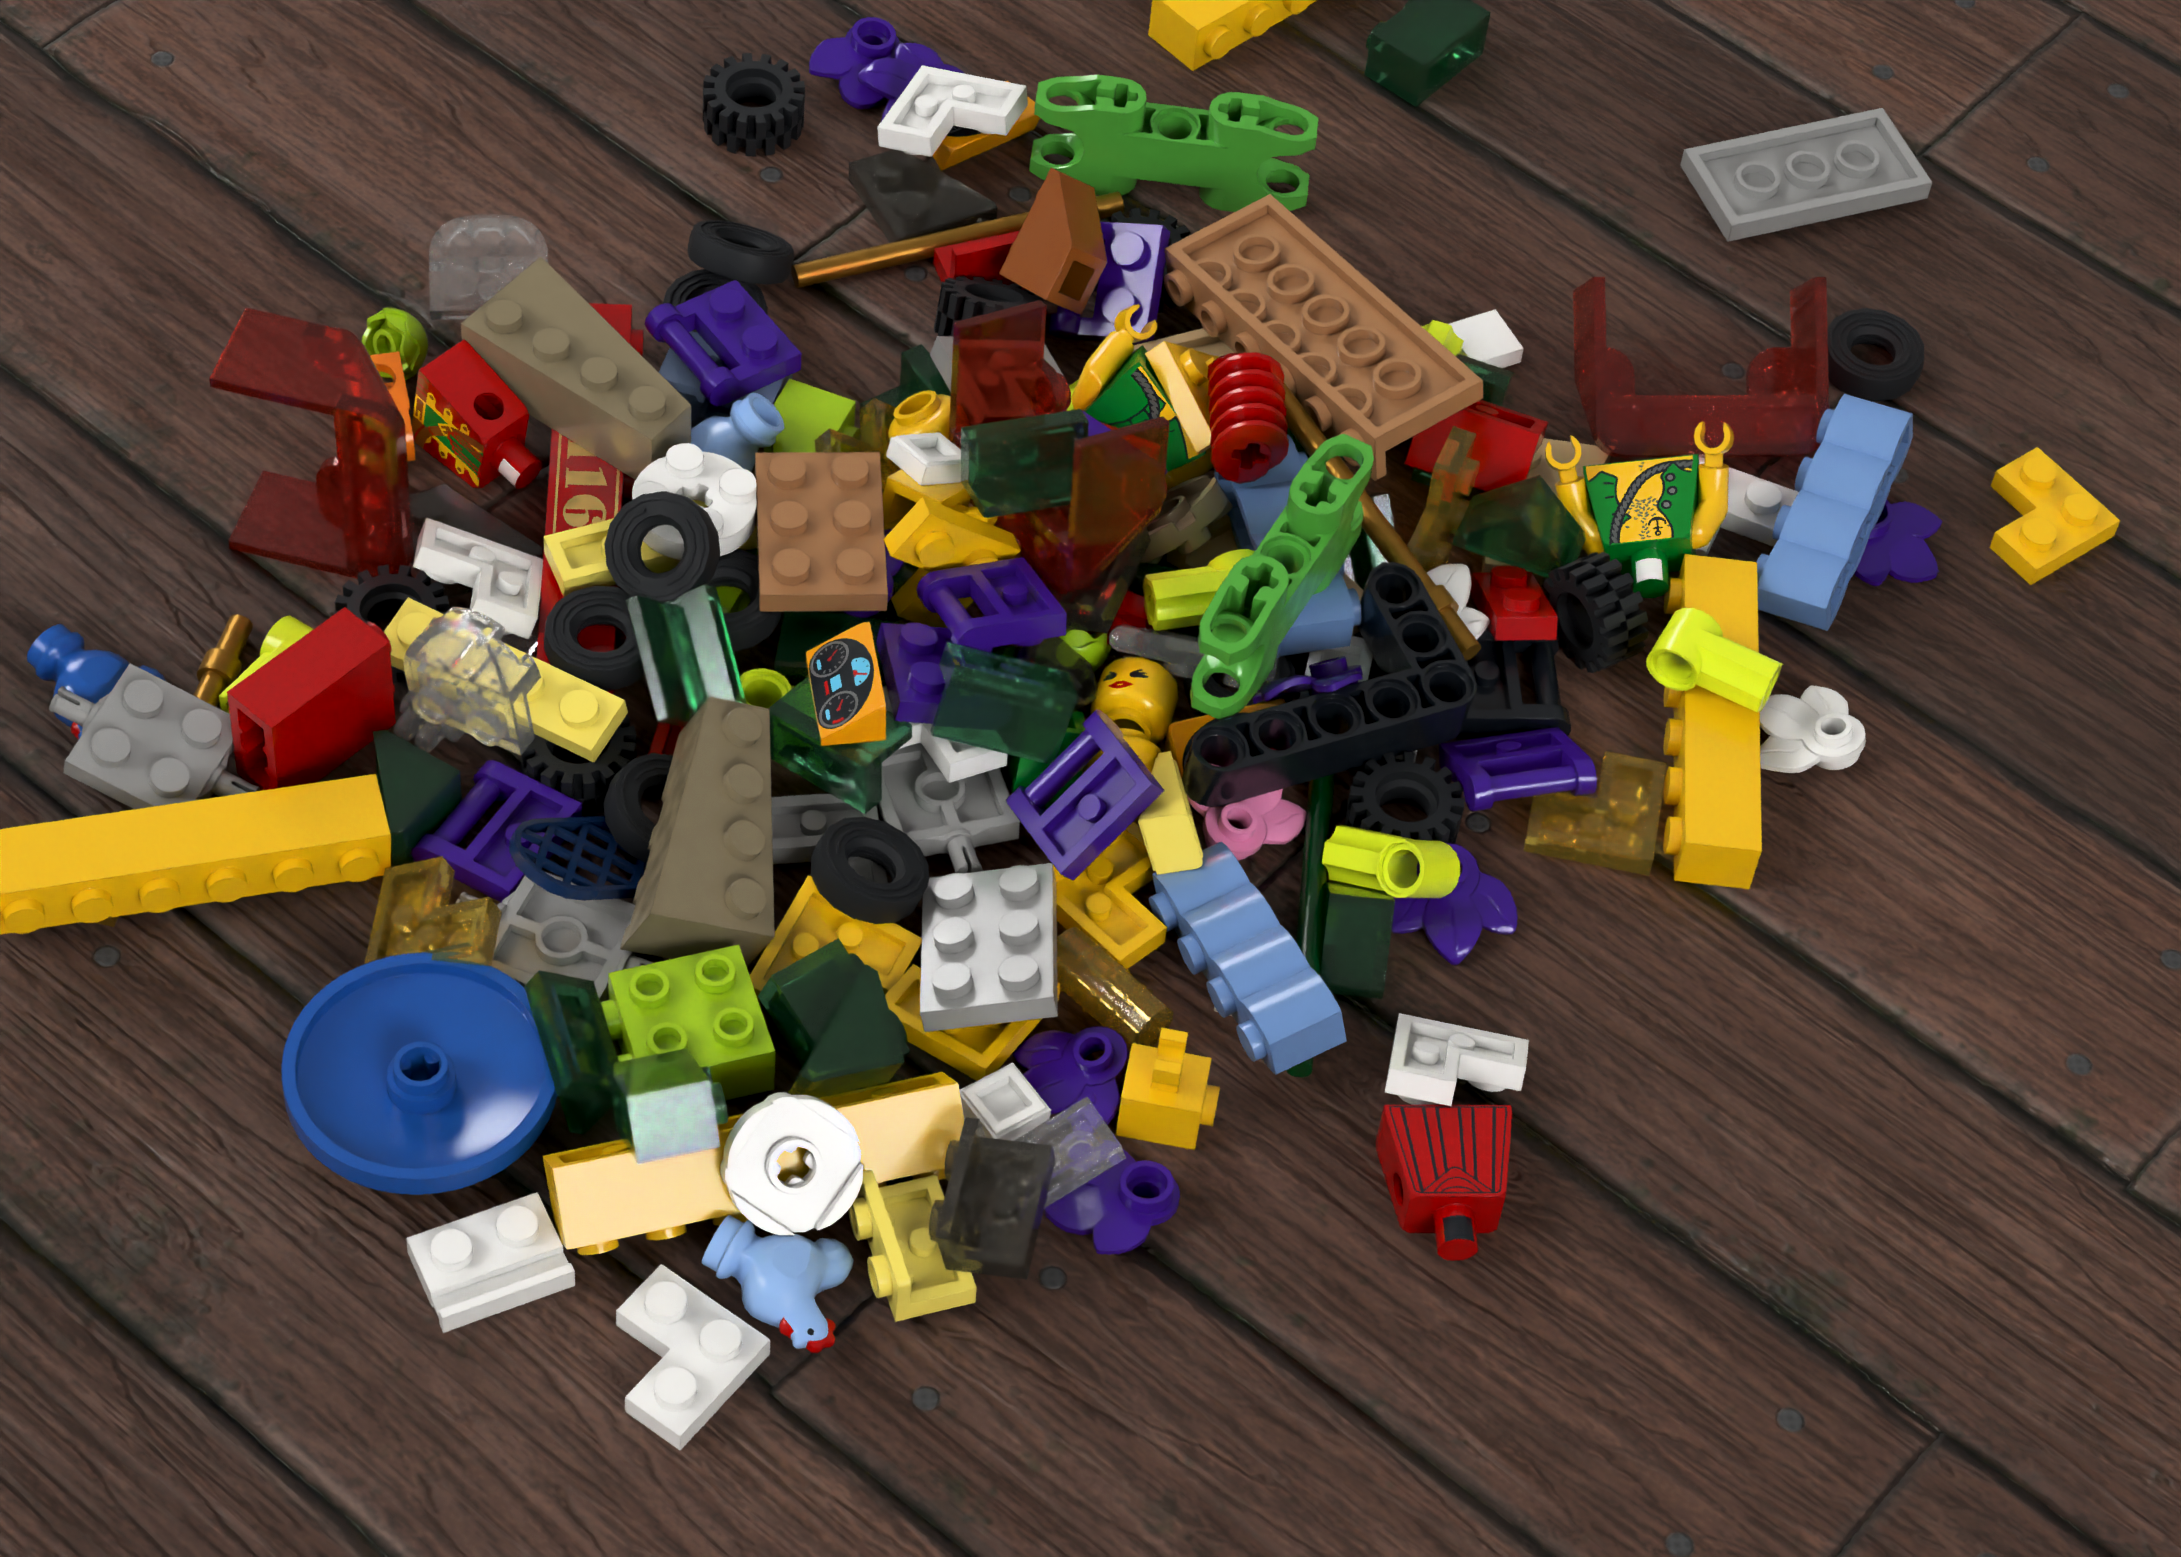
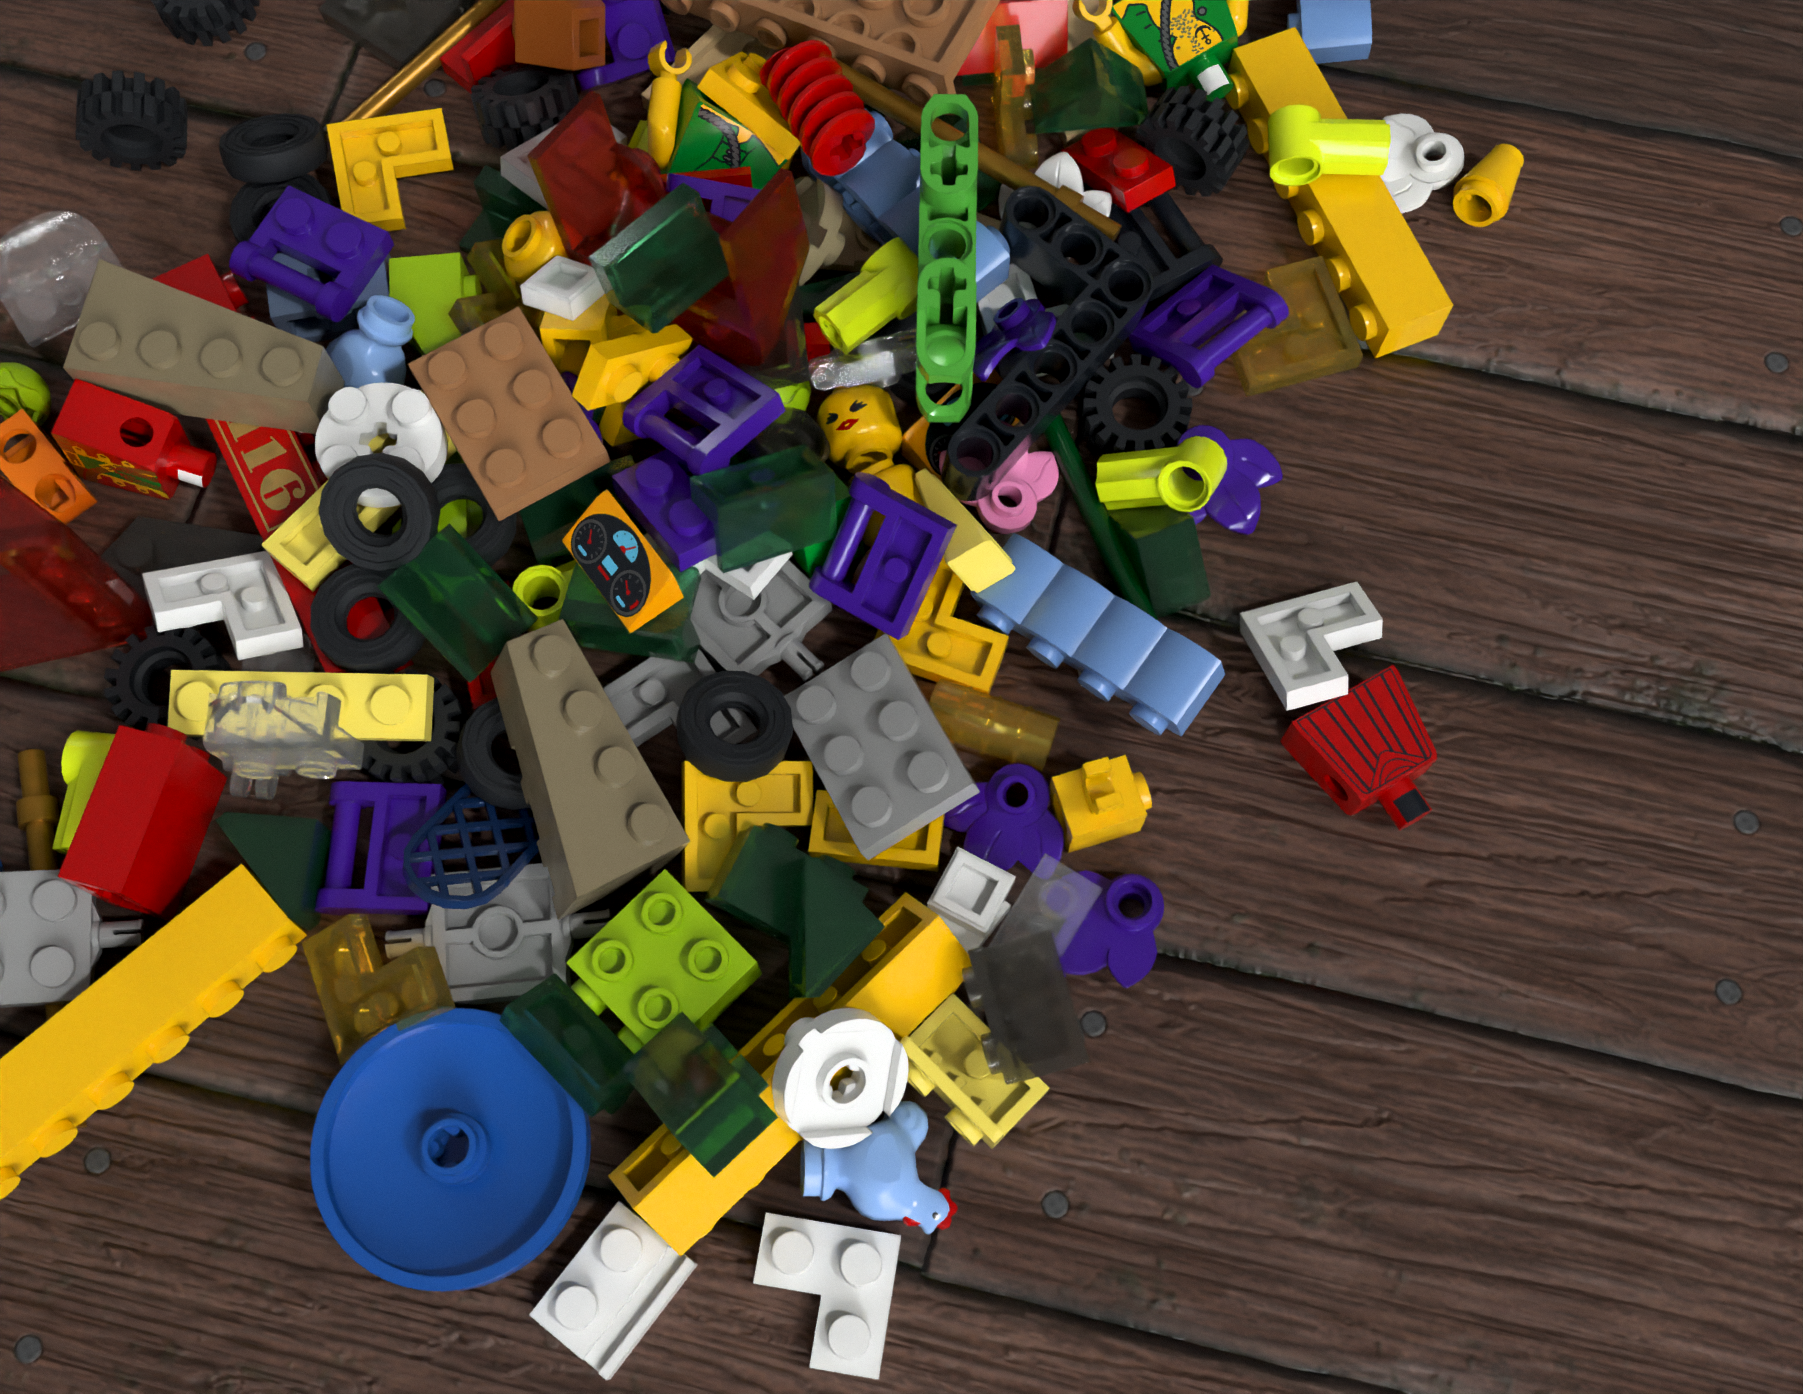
camera: 20 degrees left, 20 degrees up
(653, 174) = (131, 120): none -> black tyre
(833, 296) = (376, 152): none -> yellow plate
(1874, 783) = (1488, 187): none -> yellow cone

